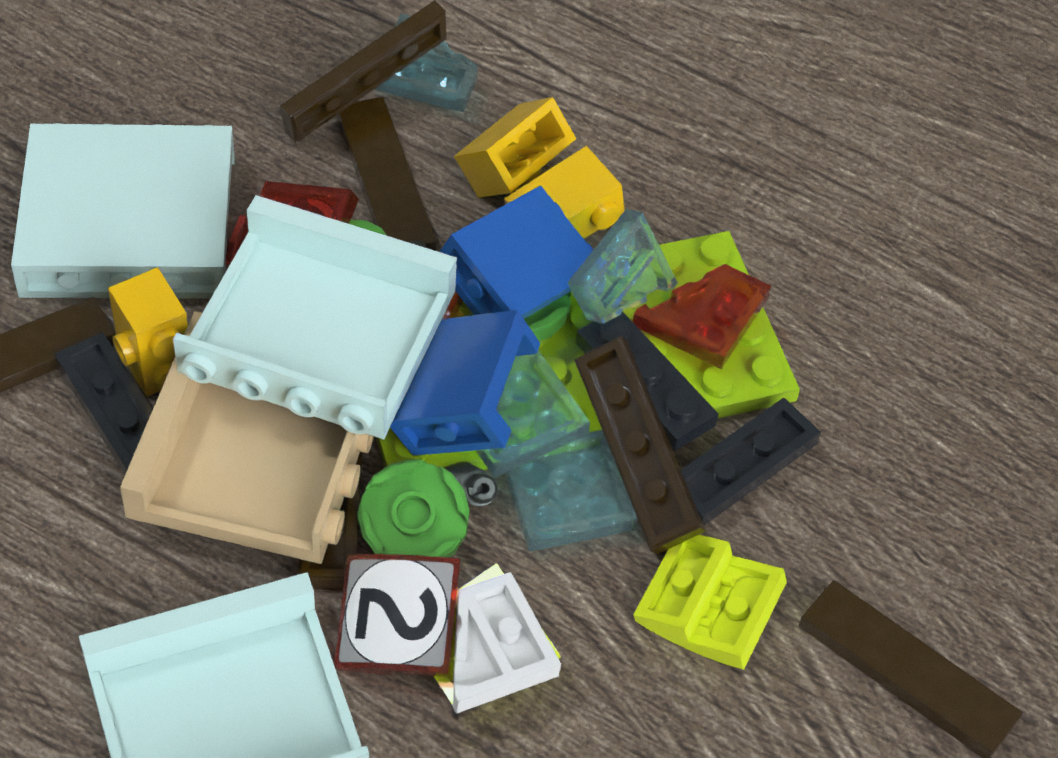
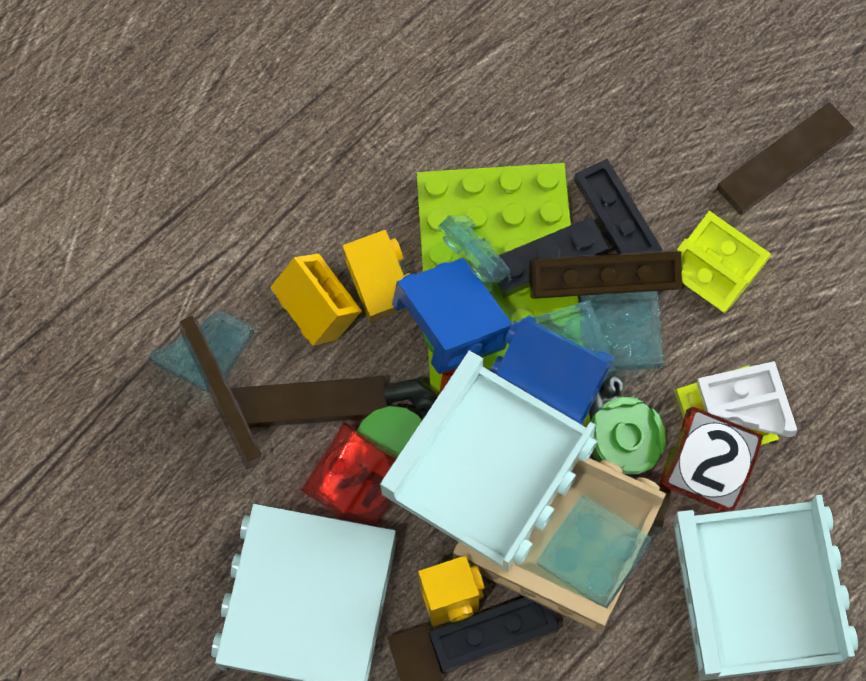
camera: 70 degrees left, 15 degrees up
(225, 471) = (594, 551): none -> clear light blue plate
(707, 315) = (505, 202): clear red wing -> none

